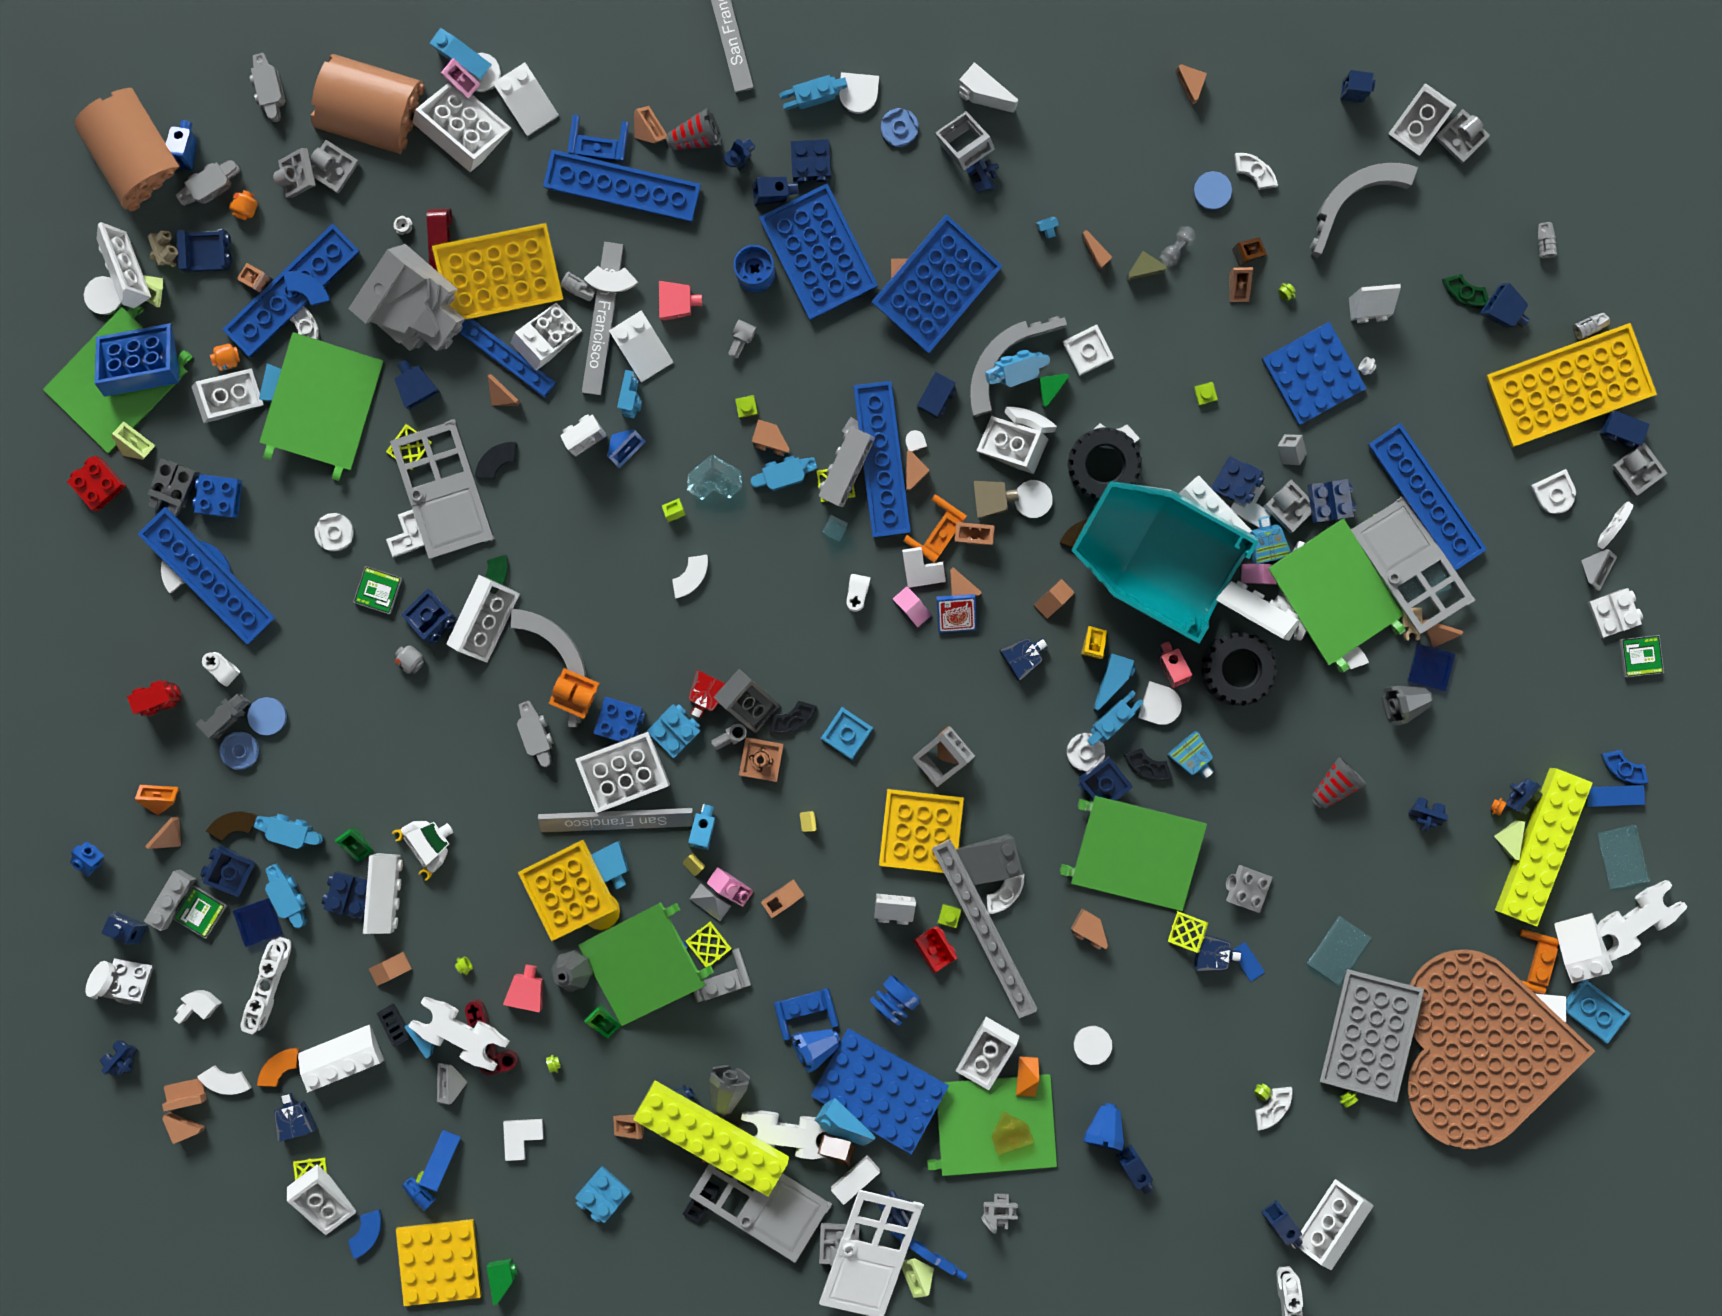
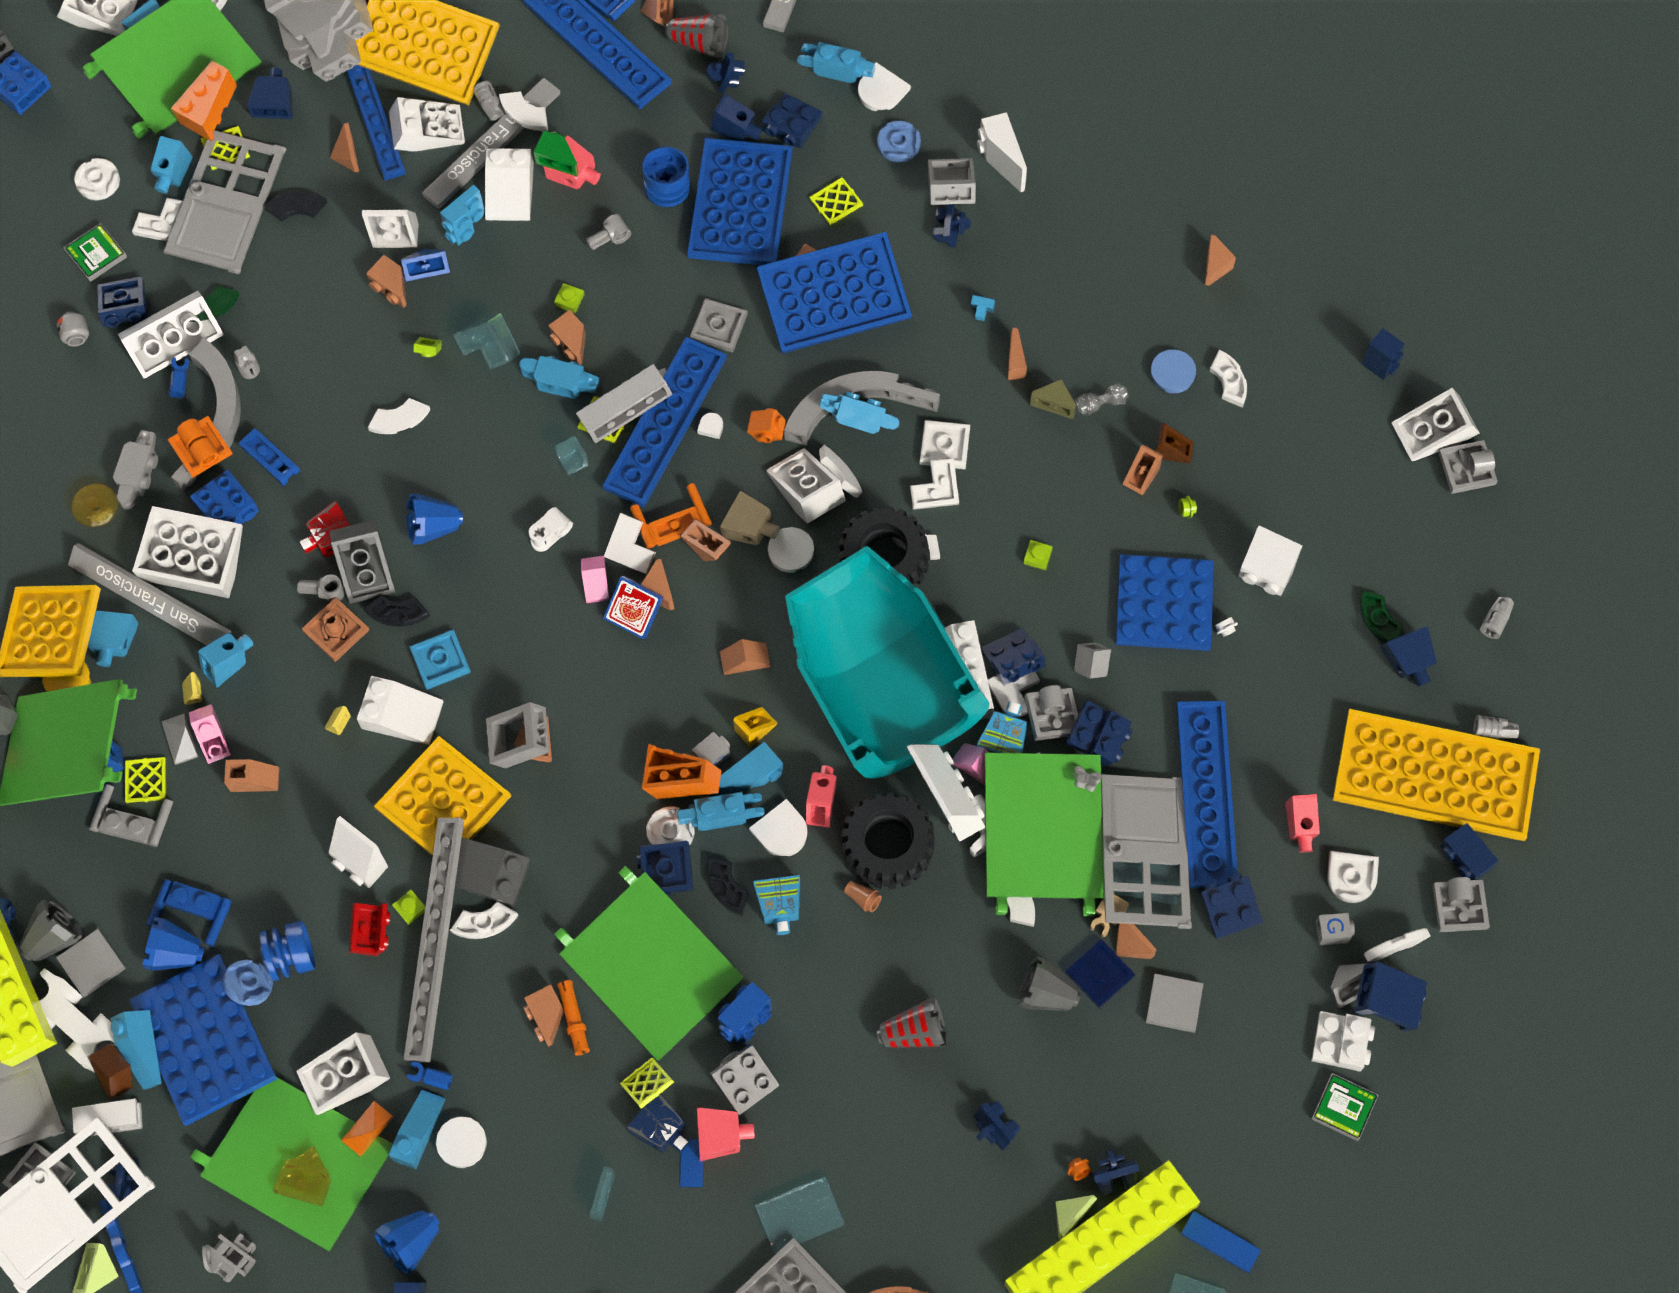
camera: 40 degrees right, 20 degrees down
(371, 422) = (205, 100): none -> orange wedge
(383, 482) = (170, 163): none -> dark azure torso
(513, 648) = (178, 379): none -> blue bar
(518, 783) = (91, 497): none -> clear yellow dish
(555, 606) = (245, 361): none -> light grey hinge
(608, 476) = (388, 279): none -> nougat slope
(621, 664) = (268, 456): none -> blue plate
(664, 303) = (555, 153): none -> green slope
(674, 730) = (272, 549): dark azure plate -> none
(766, 1088) = (91, 963): none -> light grey tile
(771, 639) = (430, 518): none -> blue cone
(848, 788) = (399, 711): none -> white slope
(867, 359) = (718, 325): none -> light grey tile
(882, 1036) = (247, 983): none -> medium blue tile
(891, 191) = (843, 213): none -> neon yellow window
(914, 470) = (688, 451): nougat slope -> none
(936, 395) = (762, 393): dark blue brick -> none
(957, 418) = (766, 425): none -> orange brick
(1023, 656) = (672, 692): dark blue torso -> none
(1044, 1016) = (431, 1076): none -> blue bar
(1050, 386) = (883, 454): green slope -> none
(1059, 1056) = (416, 1130): none -> dark azure slope
(1070, 714) = (678, 775): none -> orange wedge
(1078, 681) = (713, 749): none -> light grey brick
(1109, 387) = (942, 490): none -> white tile
(1115, 924) = (576, 1028): none -> orange pin
(1207, 1020) = (602, 1194): none -> clear light blue tile
(1223, 848) = (744, 1014): none -> blue brick
(1244, 715) = (863, 896): none -> nougat cone
(1256, 933) = (720, 1133): none -> coral torso
(1347, 544) = (1086, 780): none -> light grey piece
(1379, 174) = (1322, 445): light grey arch -> none
(1491, 567) = (1231, 905): none -> dark blue plate
(1491, 656) = (1174, 1003): none -> light grey tile
(1503, 476) = (1303, 810): none -> coral torso
(1567, 539) = (1334, 929): none -> light grey brick
(1624, 769) = (1249, 1219): blue tile -> none
(1633, 565) = (1391, 995): none -> dark blue panel

